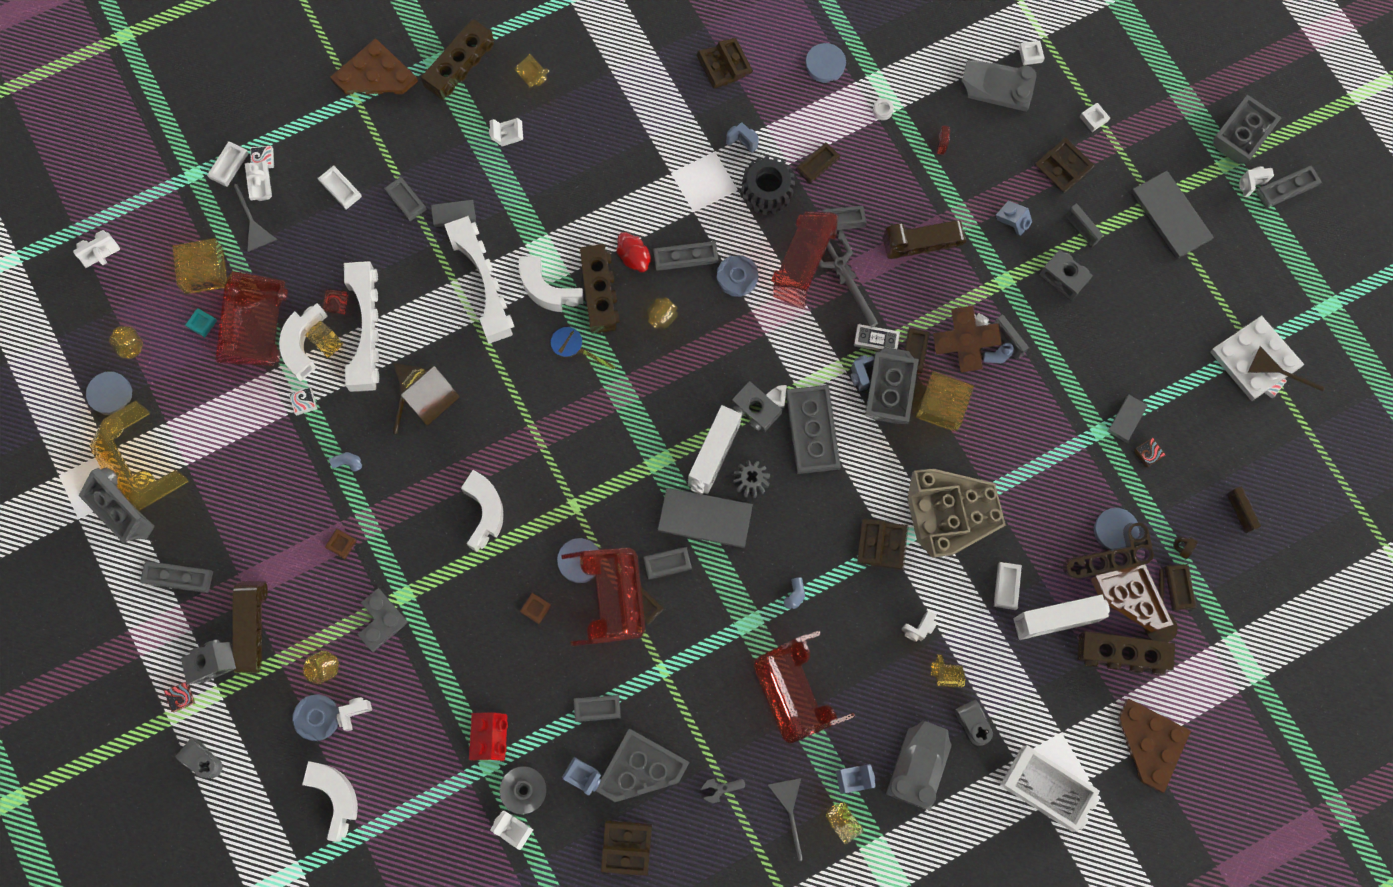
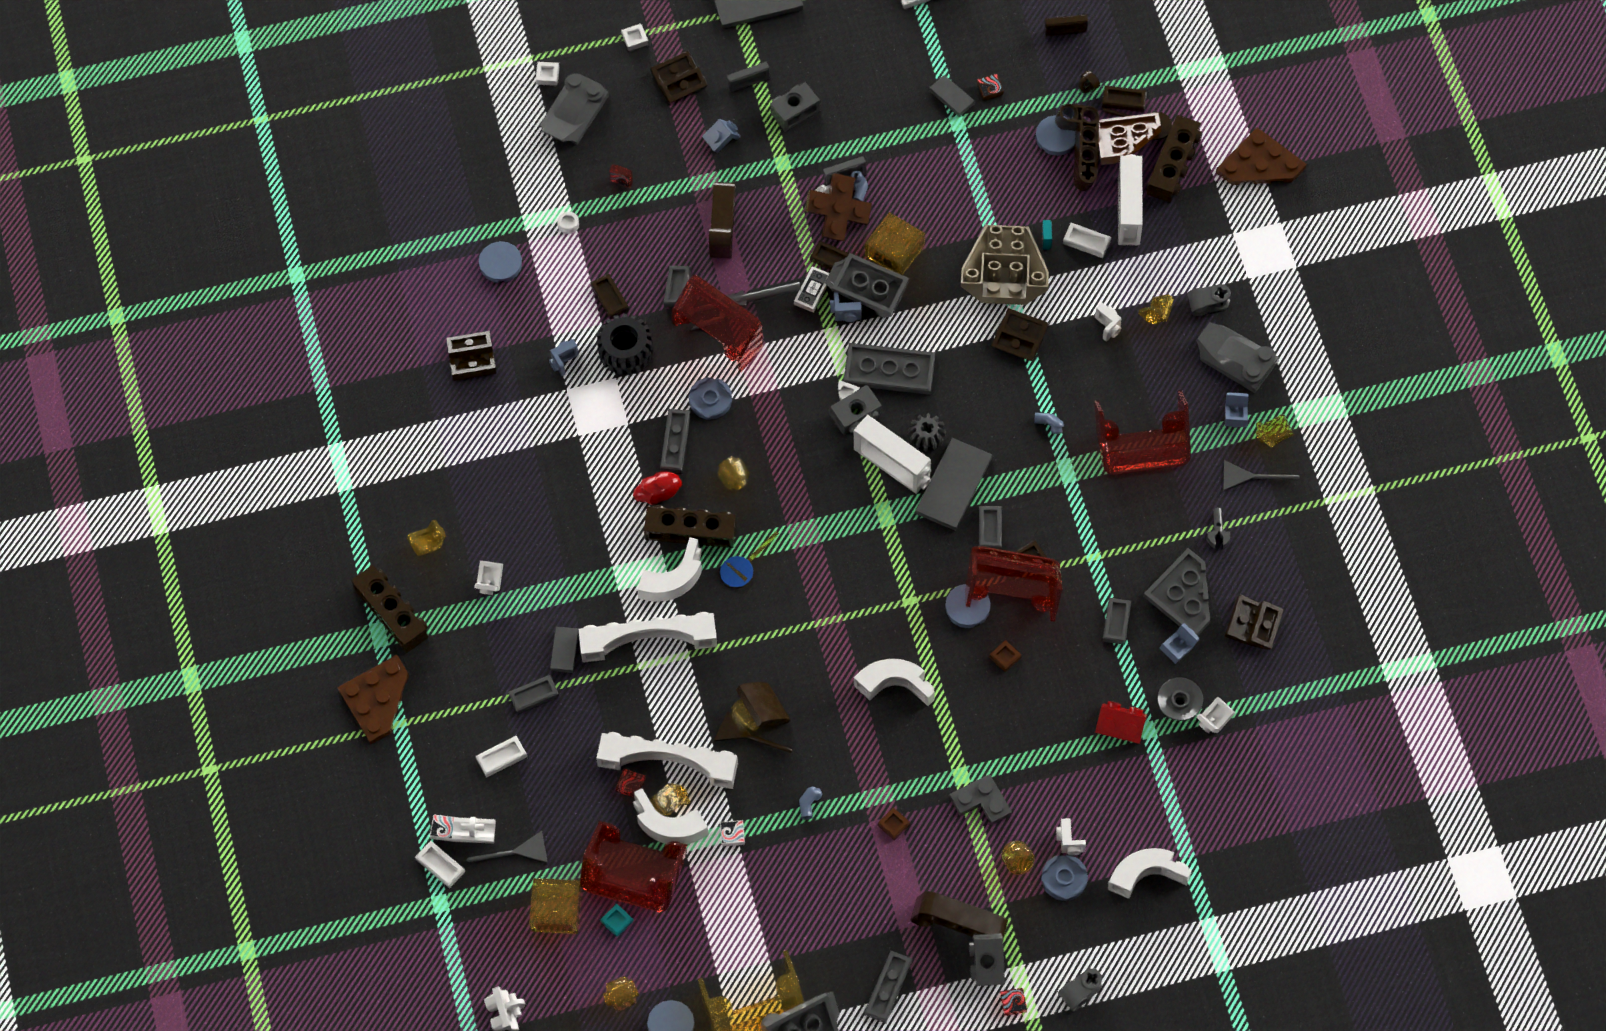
camera: 70 degrees left, 10 degrees down
(999, 544) = (1046, 234): none -> teal tile
(1050, 789) = (1282, 254): piece -> none

